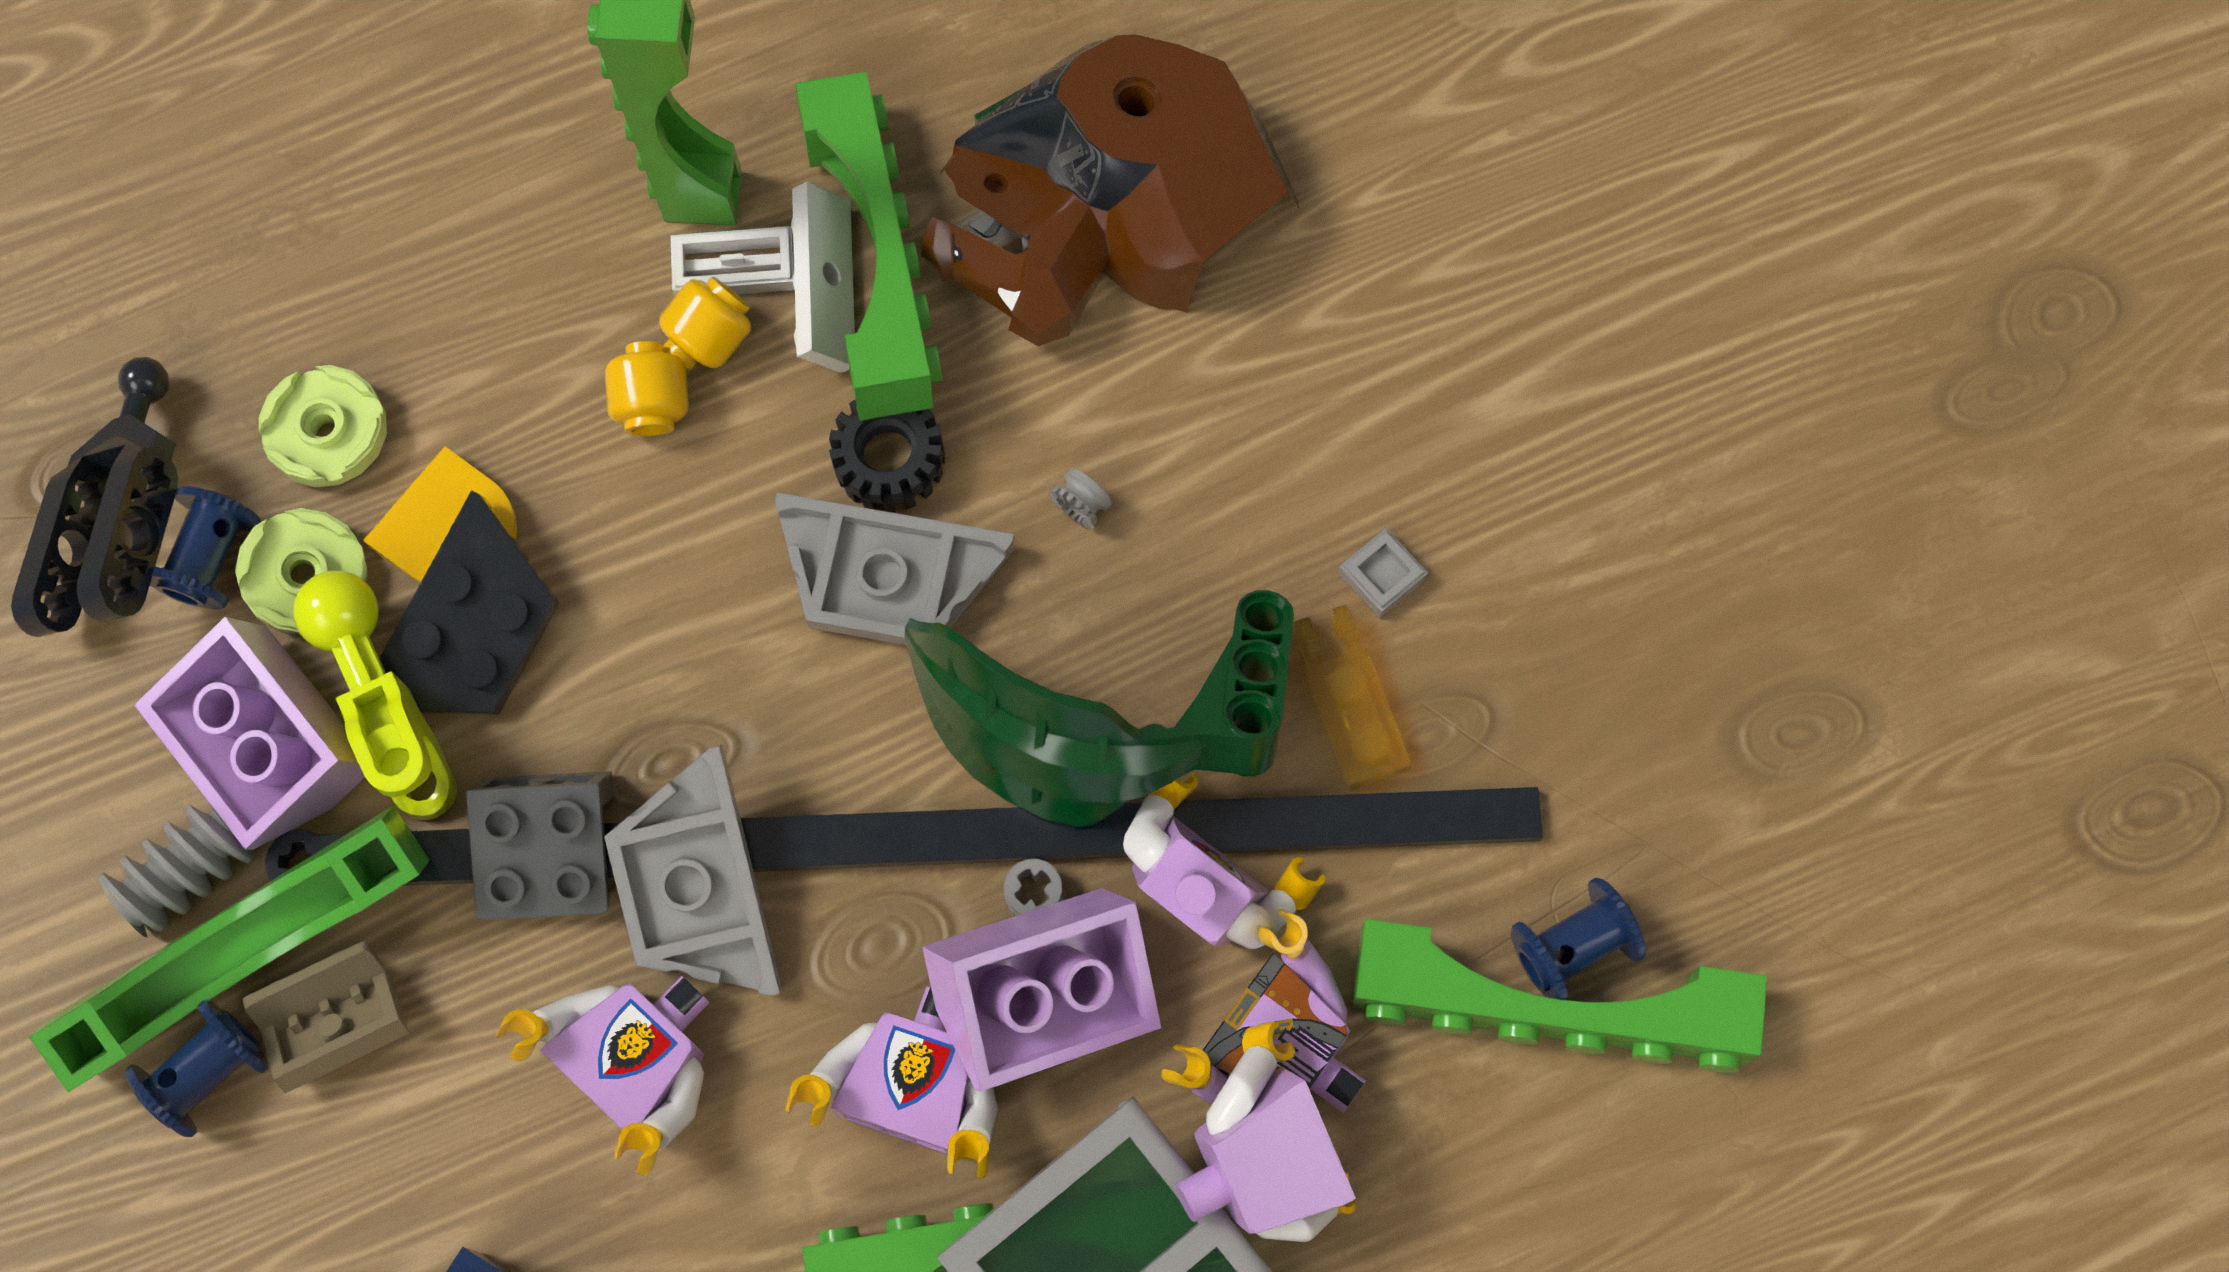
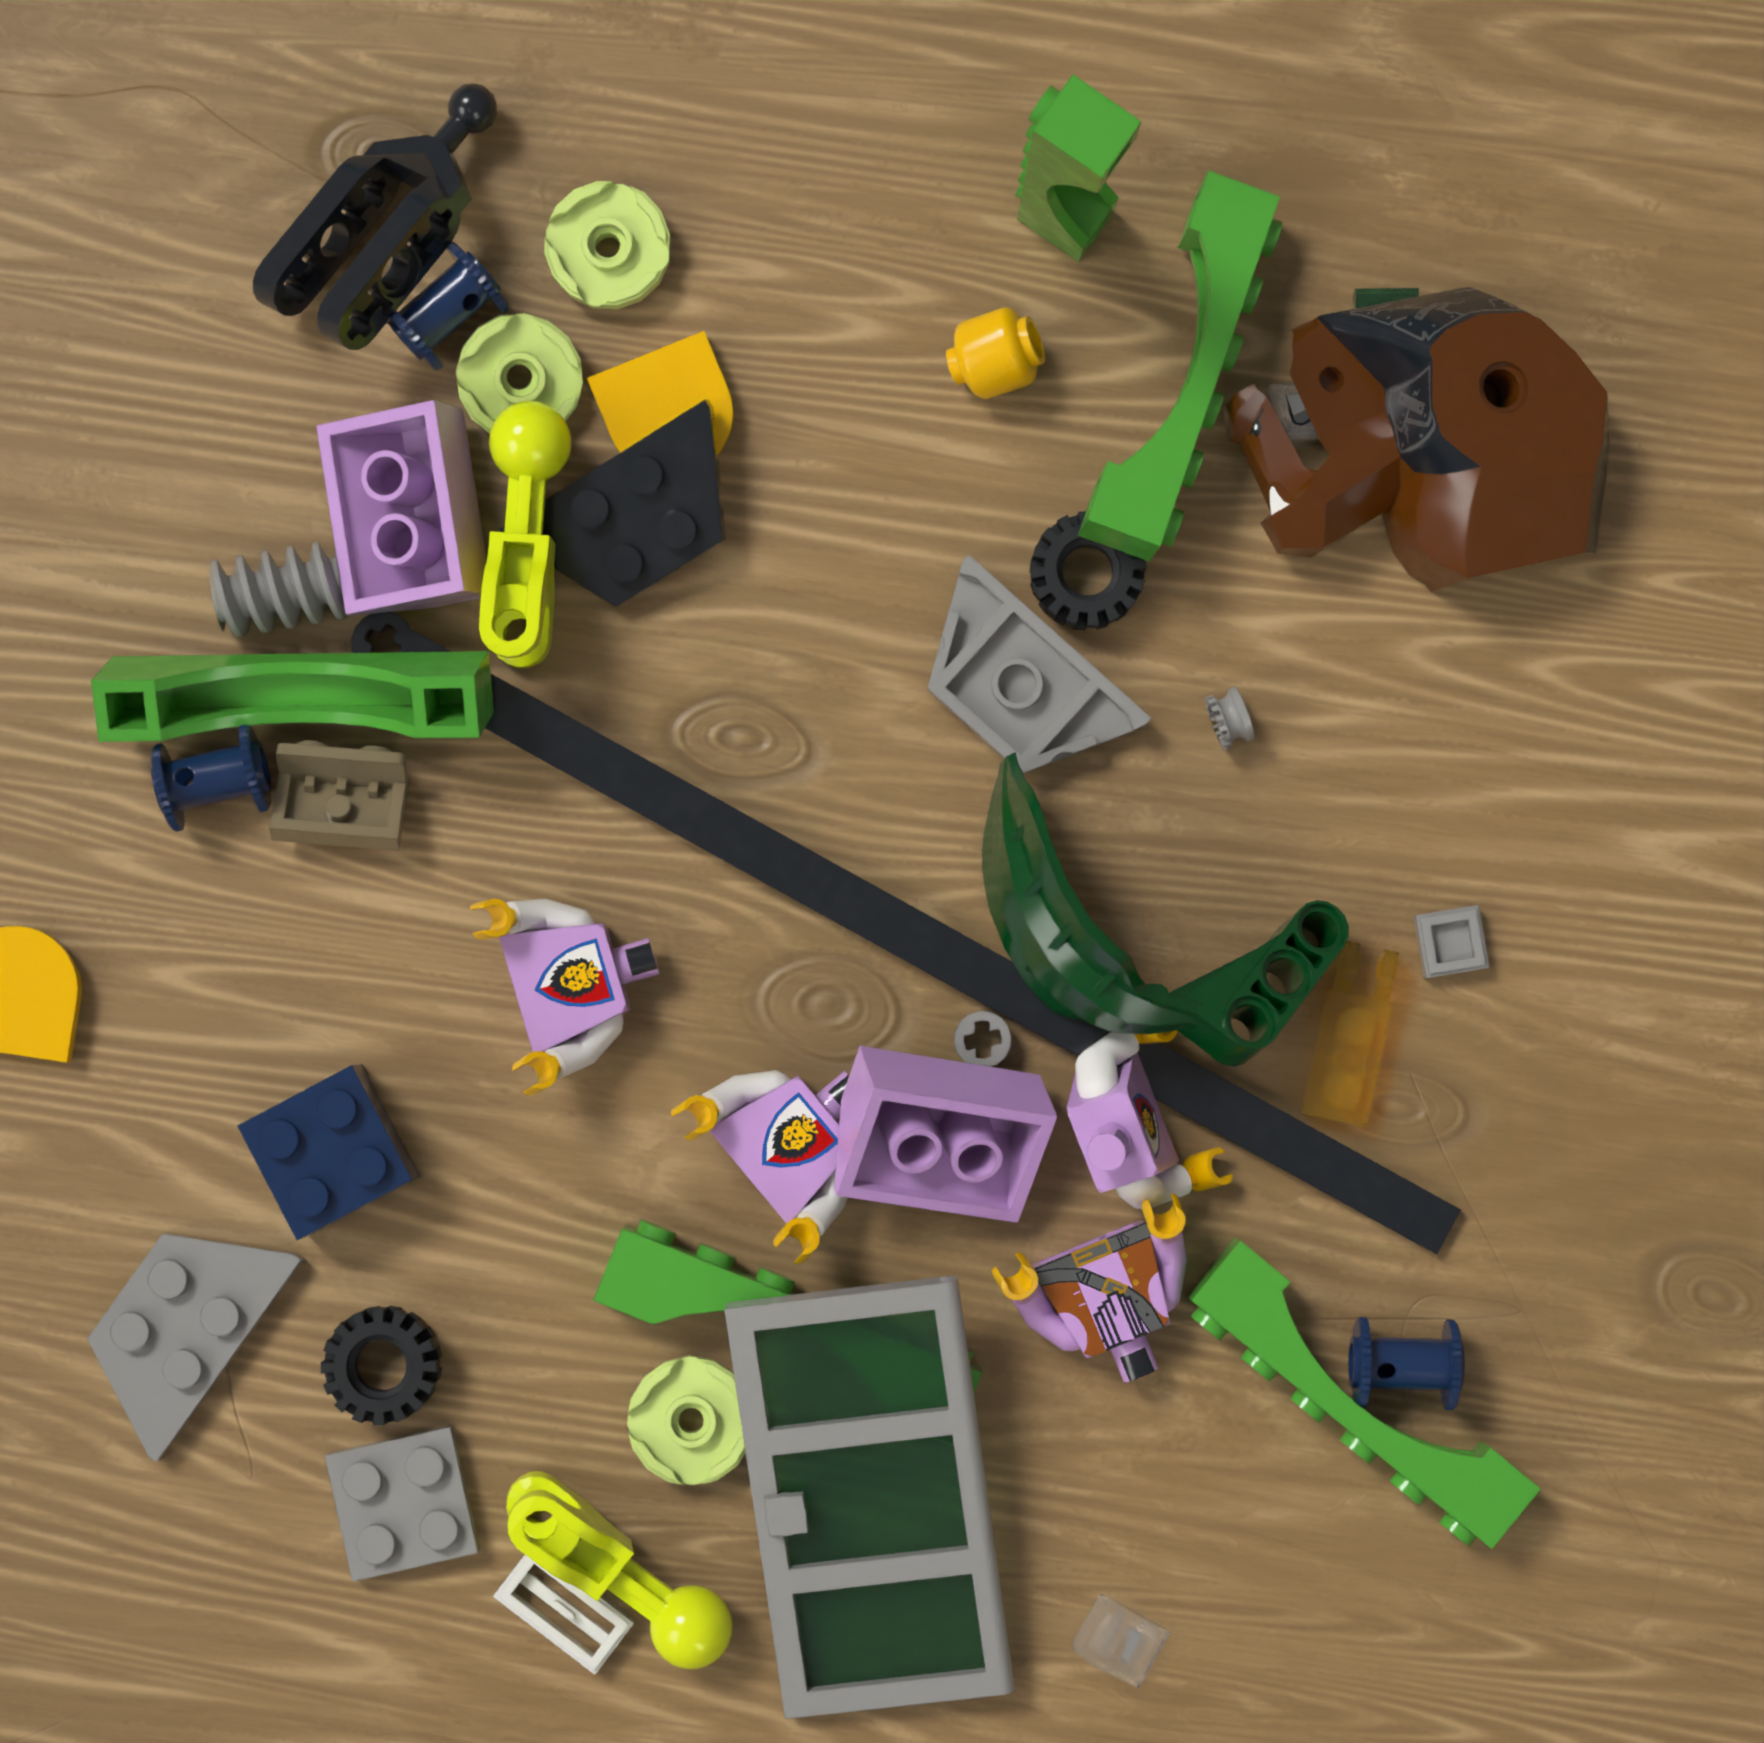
camera: 25 degrees right, 15 degrees up
(539, 845) = (594, 750): dark grey bracket -> none
(646, 389) = (909, 386): yellow head -> none
(692, 882) = (702, 864): light grey wing -> none
(736, 240) = (1066, 278): white tile -> none
(822, 275) = (1126, 369): white tile -> none
(1267, 1150) = (1039, 1384): lavender torso -> none

